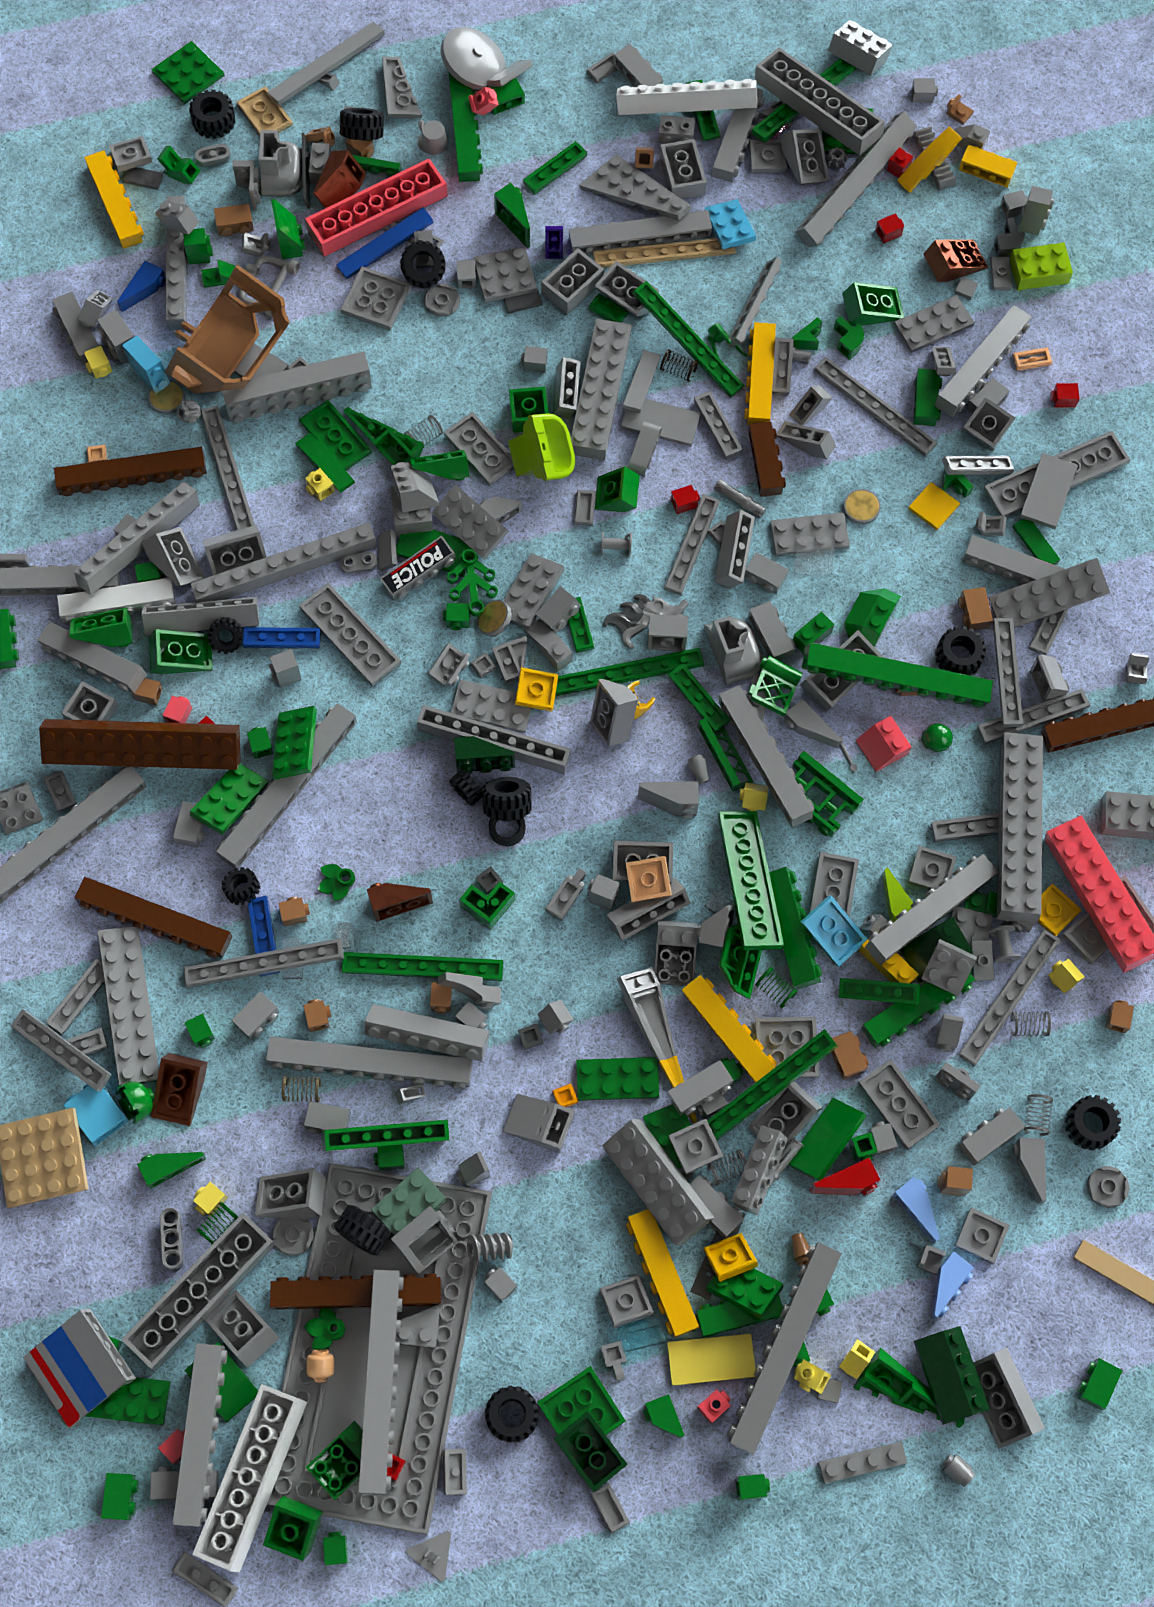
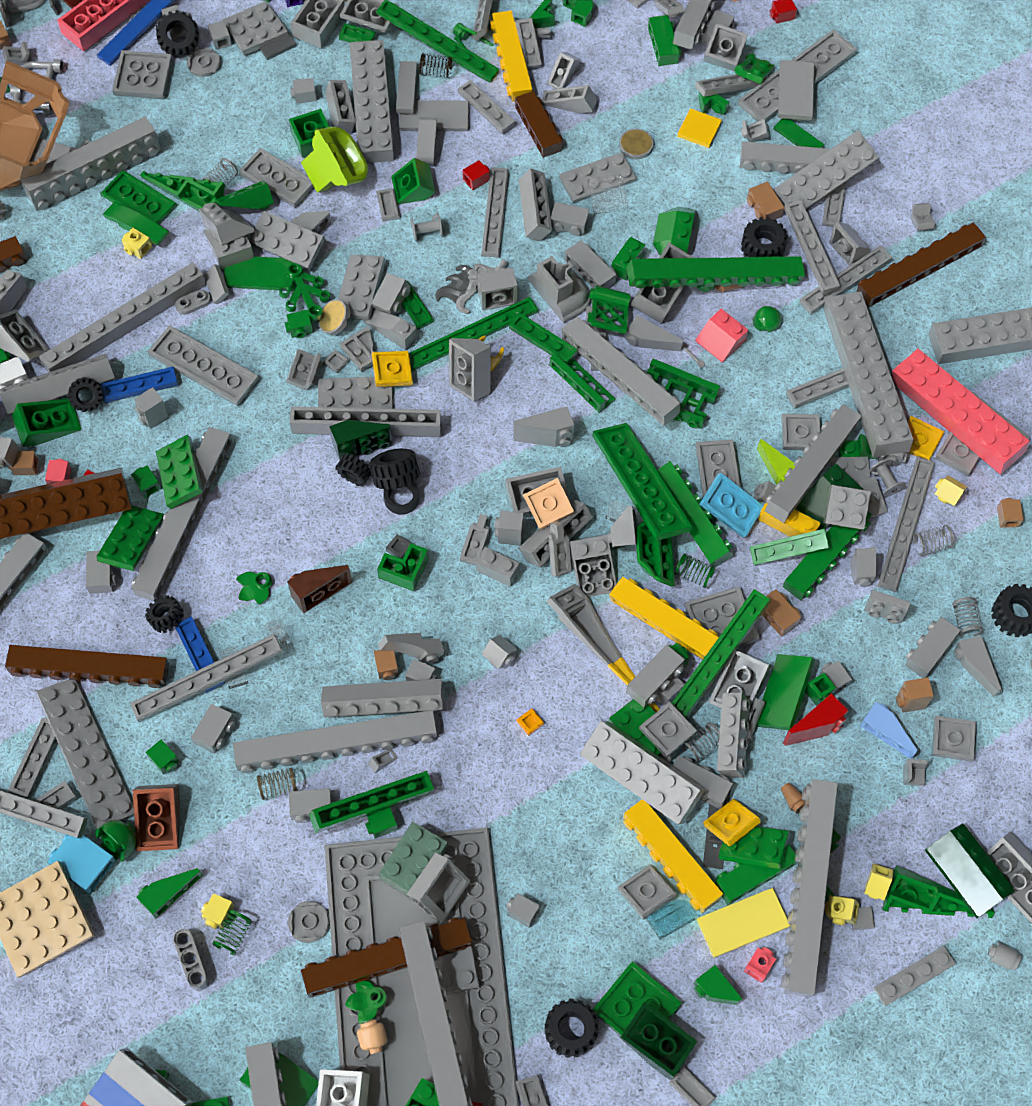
camera: 15 degrees left, 5 degrees down
(198, 1292) = (231, 1002): light grey brick -> none
(227, 467) = (46, 253): light grey tile -> none
(234, 549) = (71, 317): light grey slope -> none
(241, 1328) = (284, 1025): light grey slope -> none
(287, 232) = (44, 36): green slope -> none
(291, 1195) = (296, 884): light grey slope -> none
(293, 911) = (222, 623): medium nougat brick -> none
(317, 1015) = (272, 711): medium nougat brick -> none
(362, 1230) = (376, 894): black tyre -> none
(418, 568) = (250, 292): brick -> none
(420, 965) = (355, 641): green plate -> none
(473, 1170) = (465, 810): light grey slope -> none
(490, 1245) = (502, 876): light grey piece -> none
(530, 1036) = (481, 676): dark grey plate -> none
(539, 1122) = (513, 750): light grey slope -> none
(580, 928) = (497, 566): none -> light grey brick
(614, 1357) = (651, 947): light grey plate -> none
(617, 1078) = (574, 692): green plate -> none
(645, 929) = (559, 550): none -> light grey hinge
(698, 768) = (561, 398): light grey cone -> none
(717, 531) = (514, 196): light grey tile -> none
(746, 502) = (525, 162): light grey pin -> none
(752, 1487) = (820, 1028): green brick -> none
(754, 796) = (620, 410): light yellow brick -> none
(875, 406) = (620, 59): light grey tile -> none
(899, 1104) = (839, 642): light grey plate -> none
(949, 1279) = (937, 785): light blue slope -> none
(1016, 459) = (758, 73): none -> green plate

